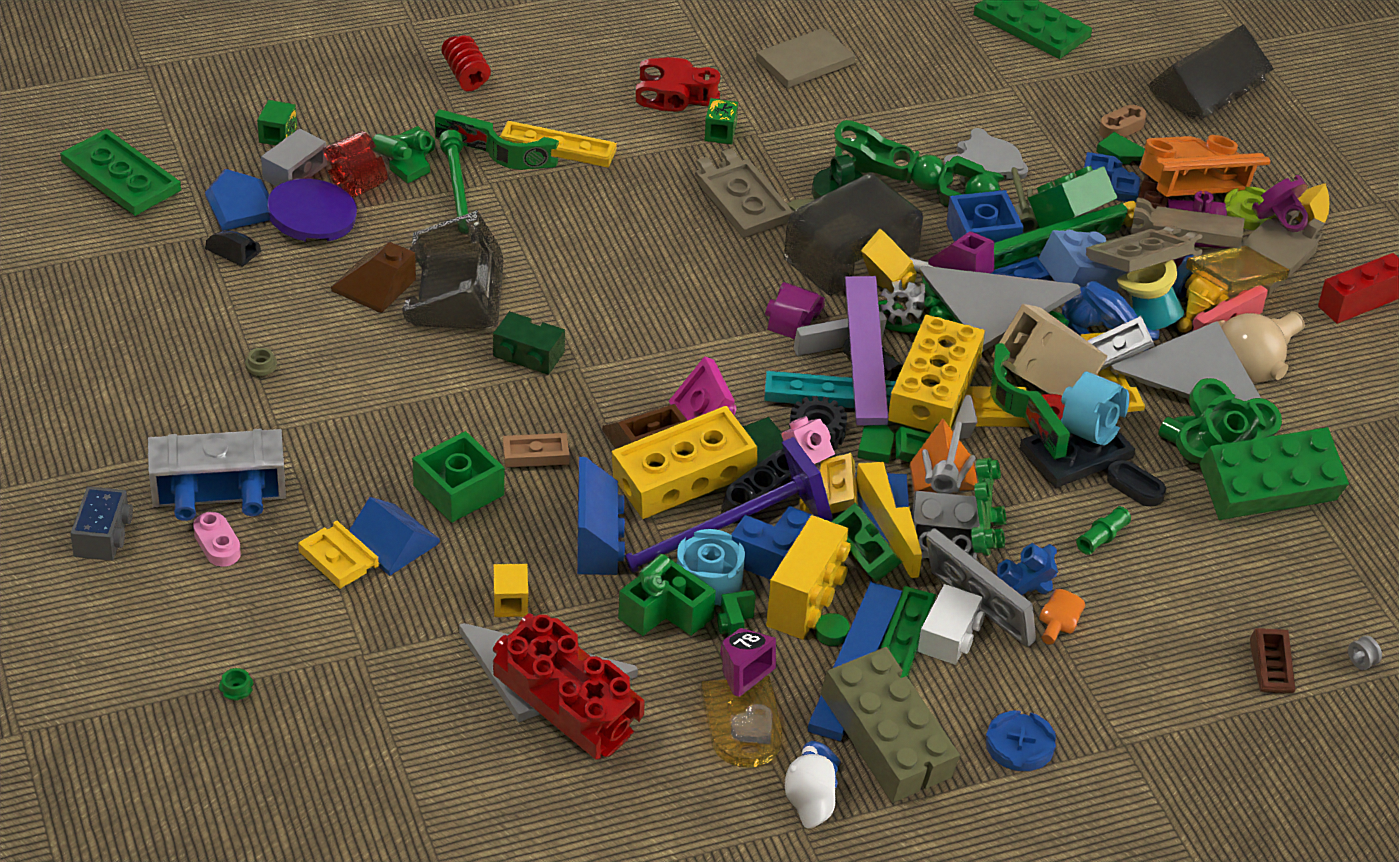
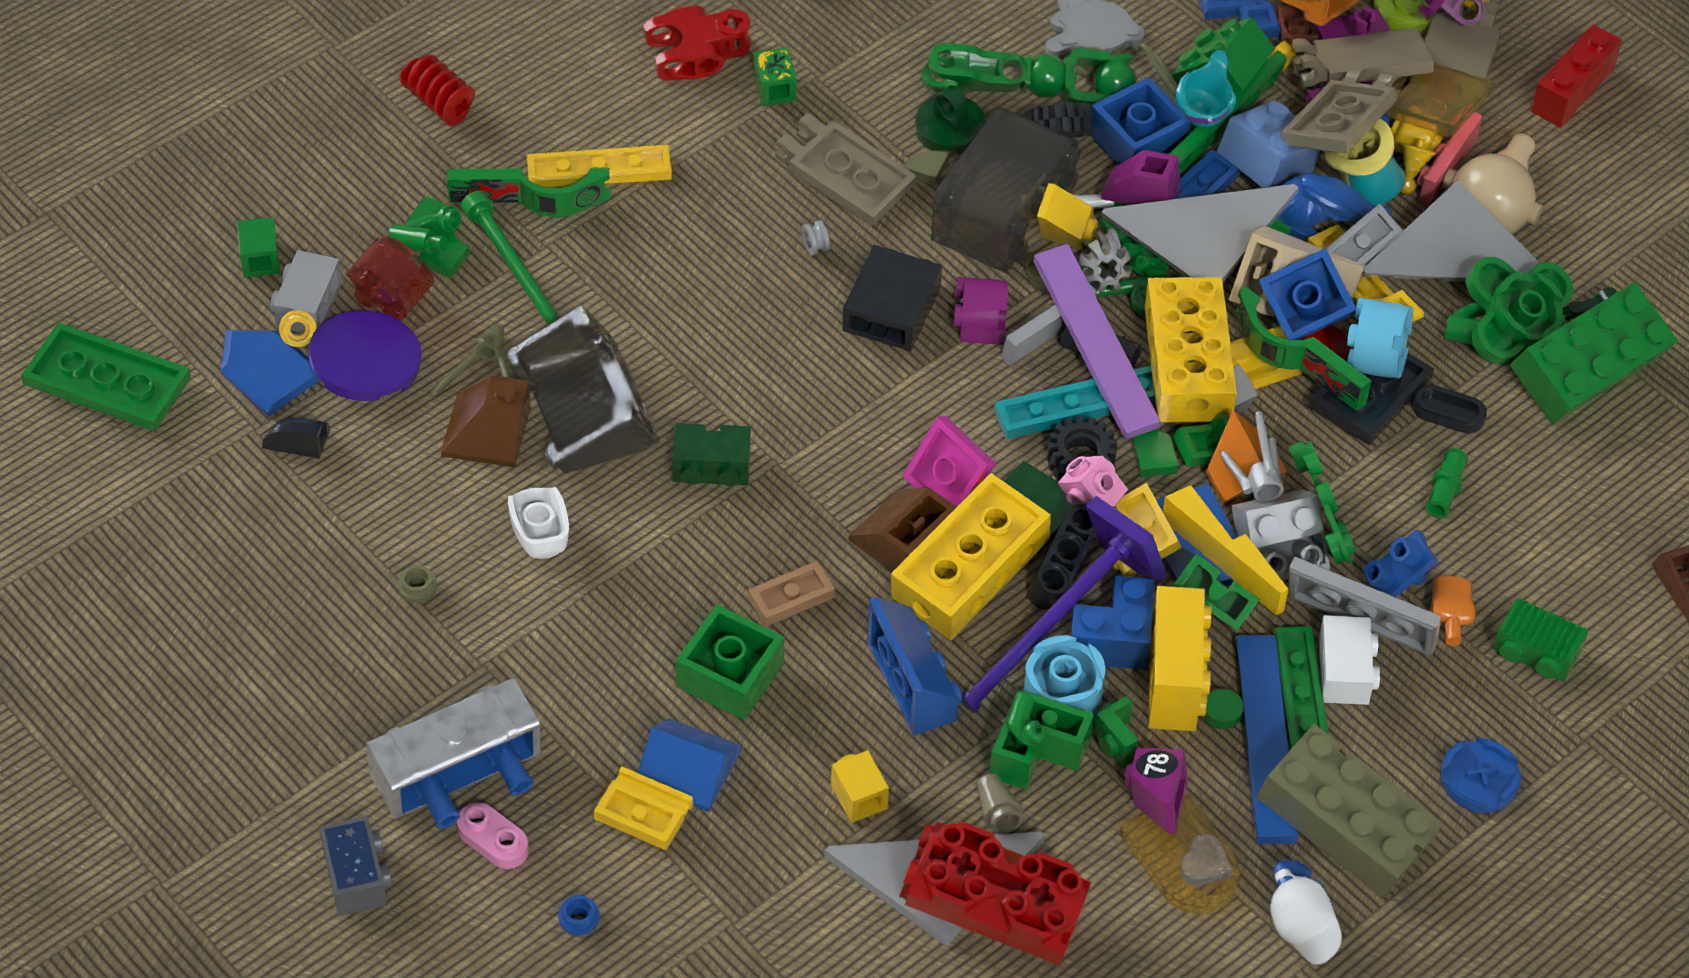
camera: 20 degrees left, 10 degrees up
(247, 609) = (578, 906): none -> blue plate
(265, 170) = (303, 338): none -> yellow plate
(371, 346) = (539, 521): none -> white piece
(403, 231) = (488, 349): none -> olive plant
(612, 638) = (999, 806): none -> dark tan cone
(691, 229) = (815, 237): none -> light grey bush
(727, 283) = (892, 297): none -> black brick
(929, 201) = (1066, 118): none -> black tyre
(1041, 207) = (1206, 93): none -> teal hair
(1049, 361) = (1307, 296): none -> blue slope
(1121, 659) = (1540, 640): none -> green brick

